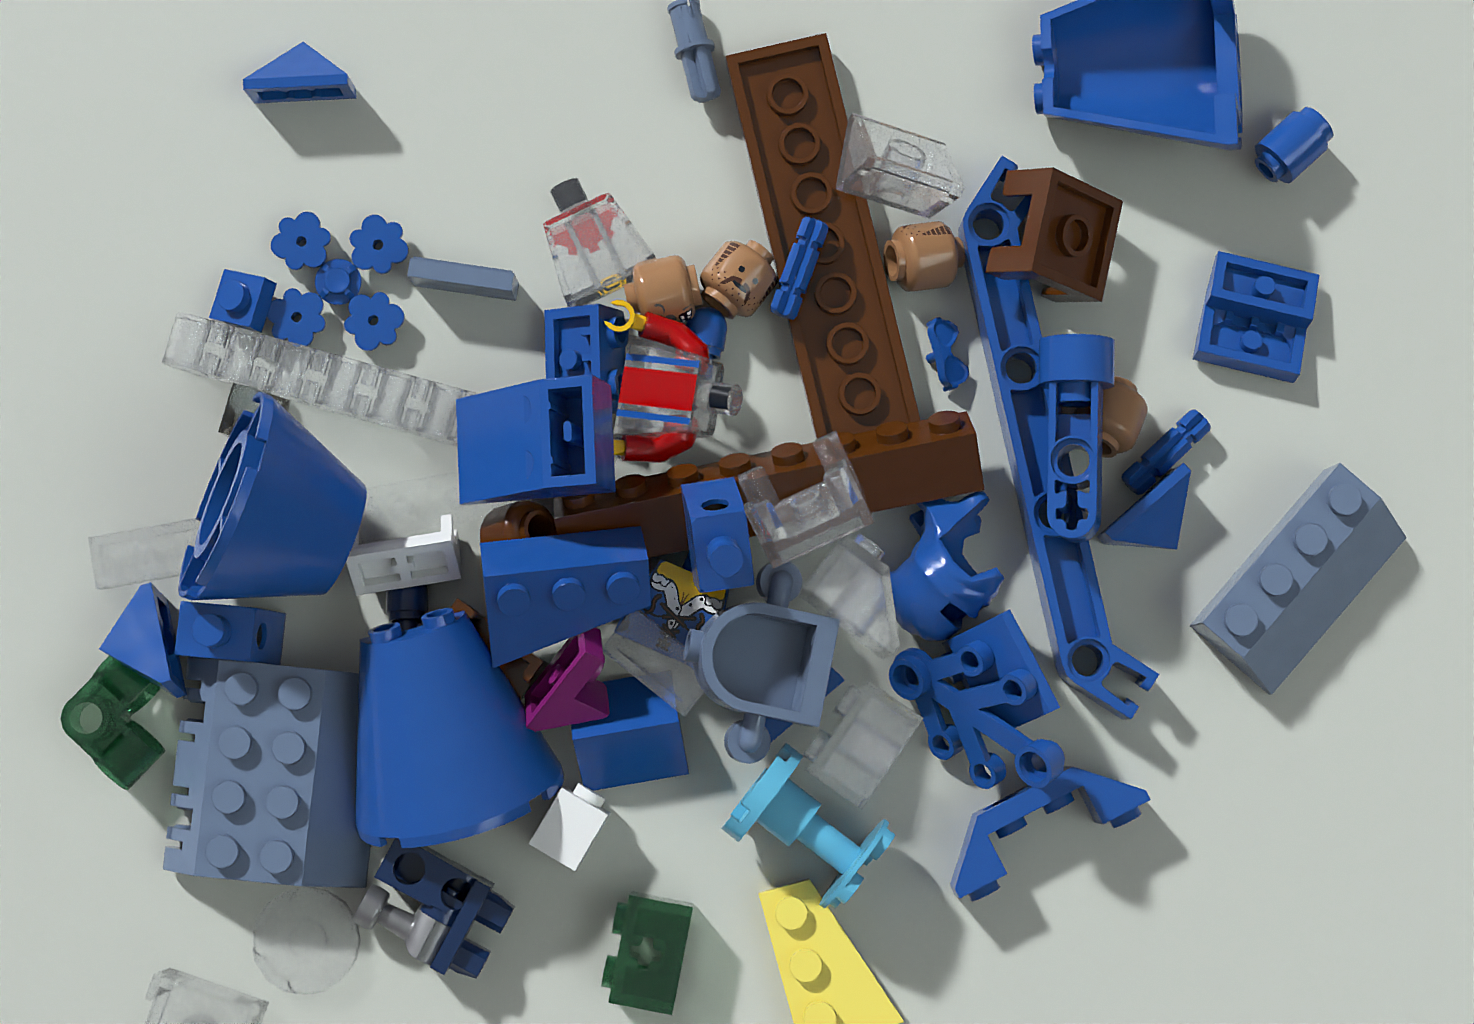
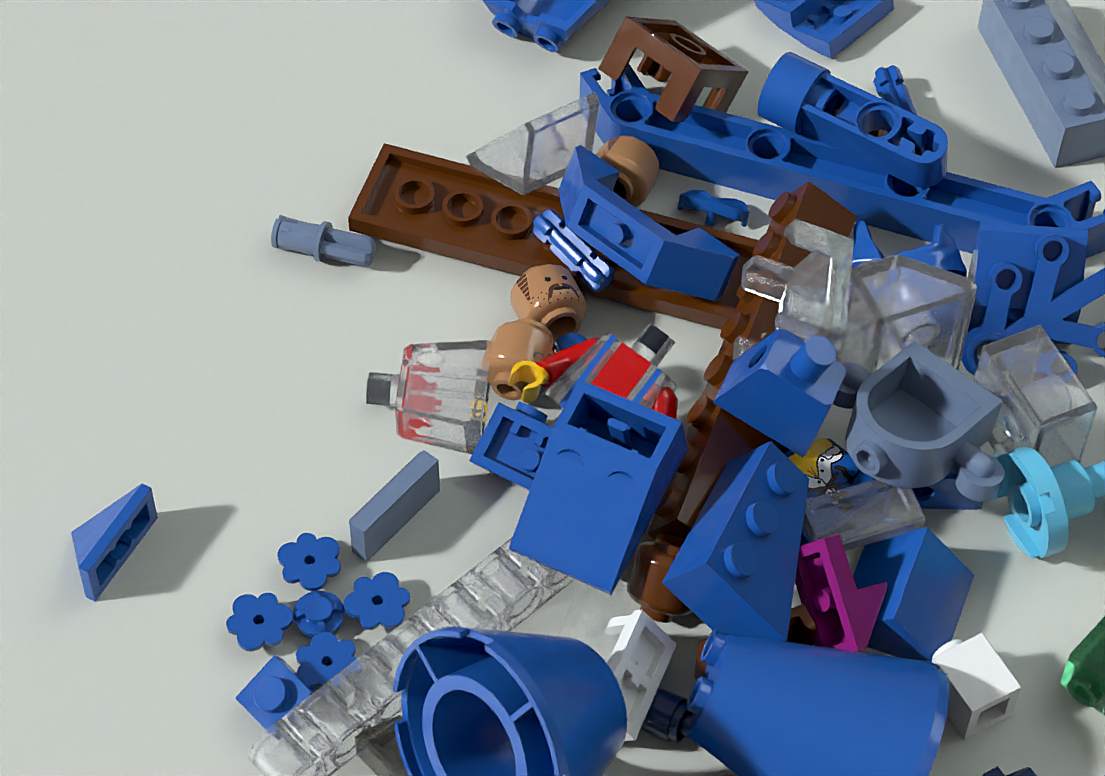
camera: 60 degrees left, 30 degrees down
(837, 382) = (681, 263): none -> blue slope
(1155, 517) = (962, 142): blue slope -> none

